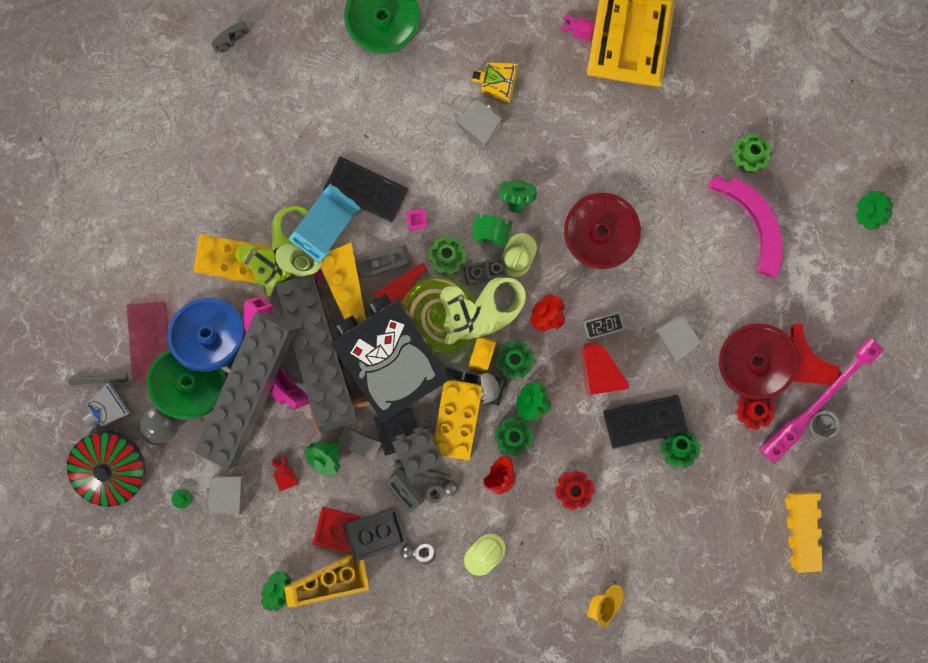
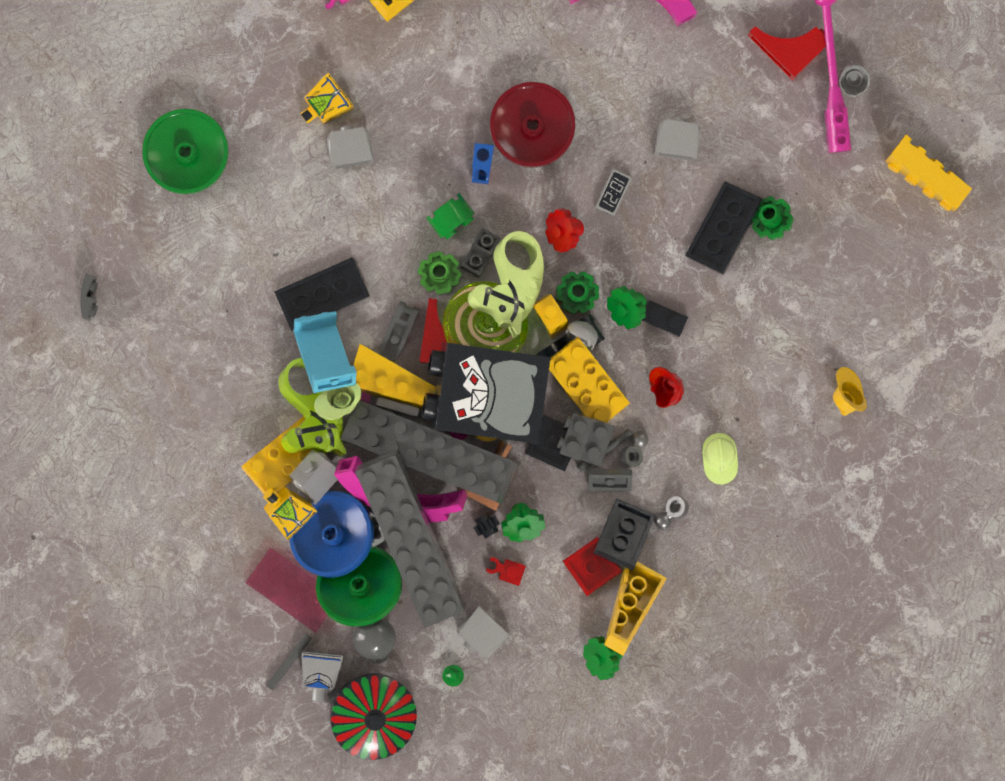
camera: 55 degrees left, 0 degrees up
(196, 291) = (288, 510): none -> yellow torso
(235, 288) = (314, 476): none -> light grey torso
(302, 434) = (486, 525): none -> black gear
(331, 304) = (398, 407): none -> light grey tile
(358, 443) = (535, 484): dark grey slope -> none
(416, 219) = (386, 272): dark pink plate -> none
(513, 436) = (642, 348): green plant -> none
(517, 194) = (439, 168): green plant -> none
(519, 254) = (491, 211): yellowish green piece -> none
(546, 220) = (482, 163): none -> blue leg
(548, 434) = (664, 318): none -> black plate
(574, 490) = (730, 336): red plant -> none
(600, 371) = (649, 227): red slope -> none
(755, 413) = (793, 127): red plant -> none
(758, 362) = (755, 90): dark red dish -> none

